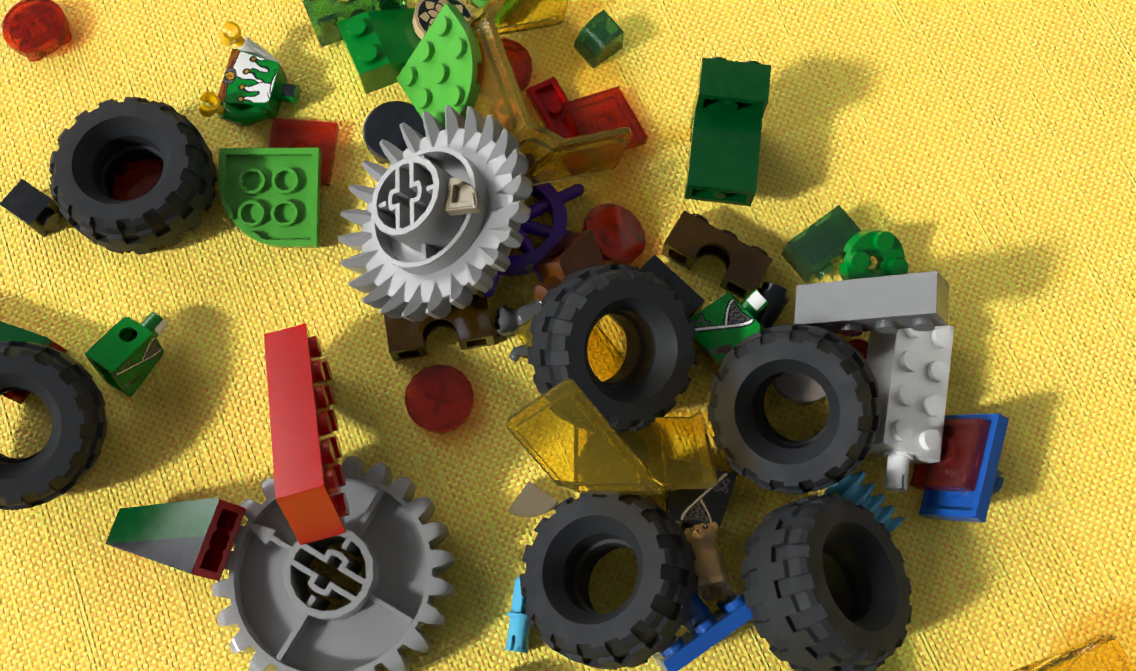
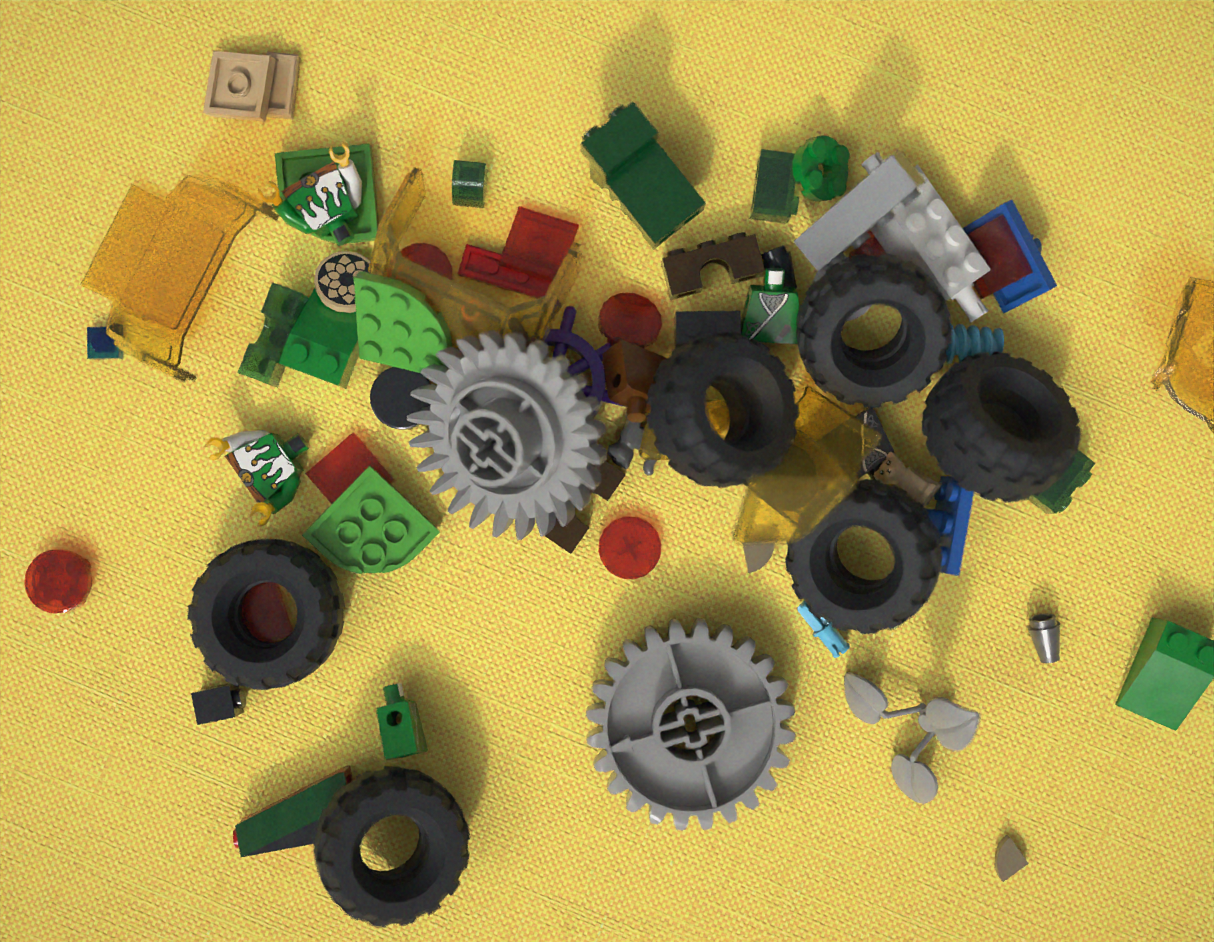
camera: 45 degrees left, 15 degrees up
(181, 534) = (575, 801): slope -> none
(303, 435) = (586, 662): red brick -> none
(462, 198) = (529, 412): dark tan tile -> none

